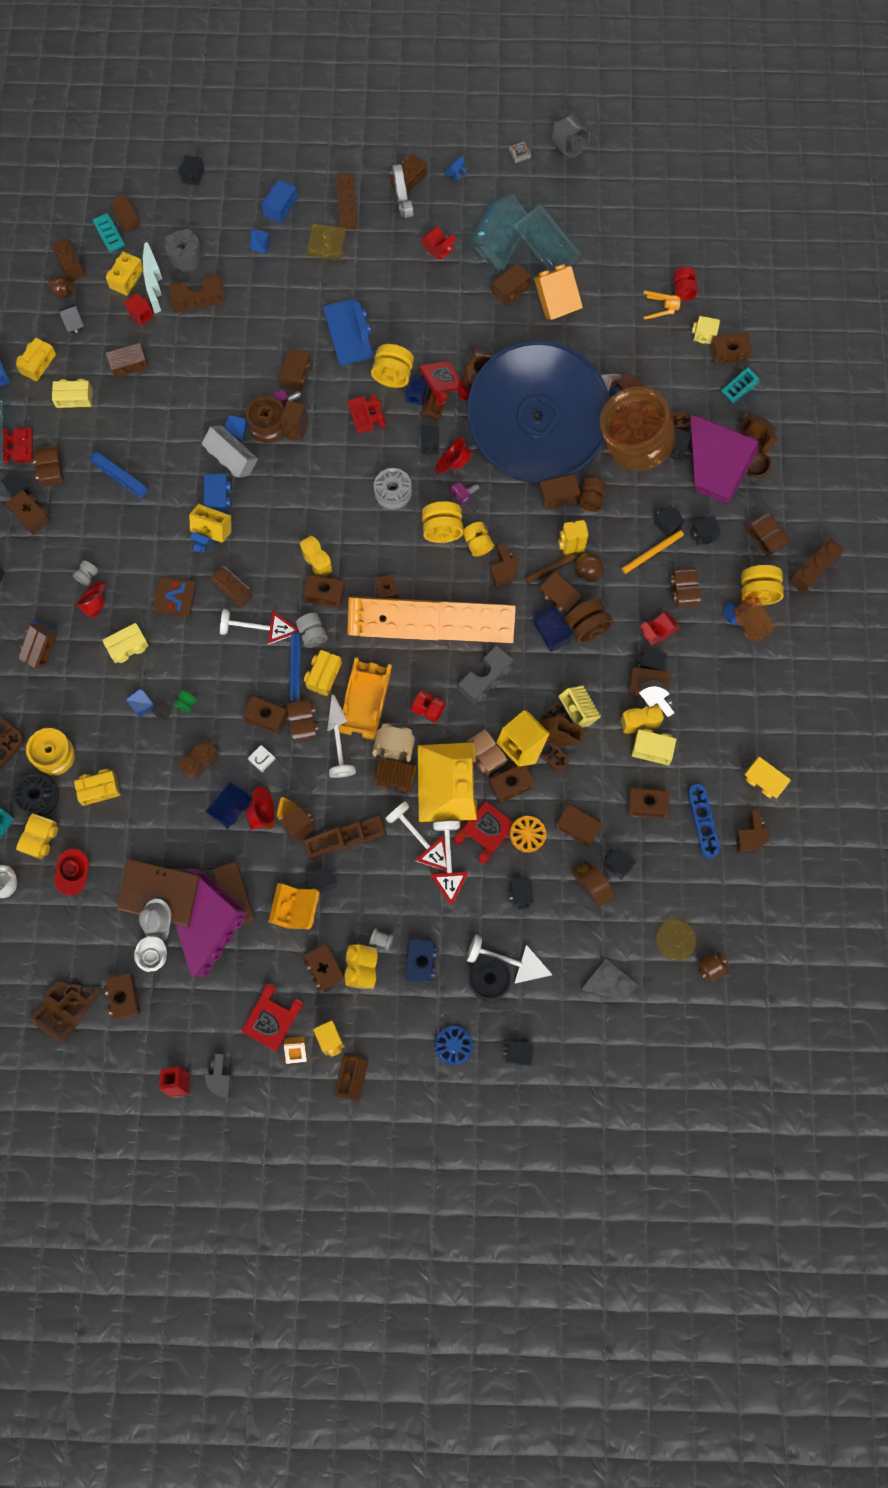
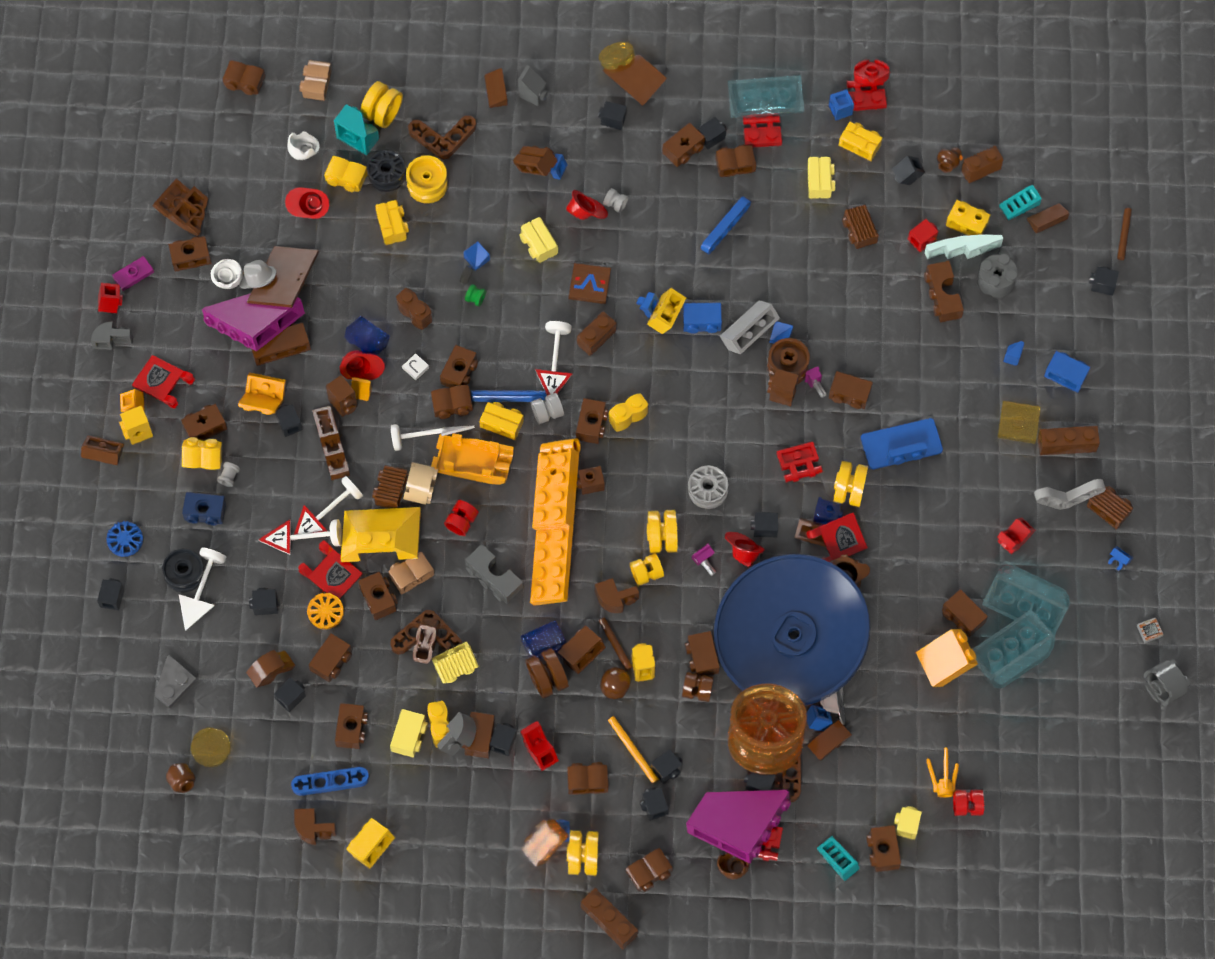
camera: 90 degrees right, 5 degrees down
(142, 1059) = (133, 273): none -> magenta plate
(145, 157) = (1124, 234): none -> reddish brown bar
(523, 739) = (417, 601): yellow slope -> none
(760, 429) = (777, 869): reddish brown brick -> none

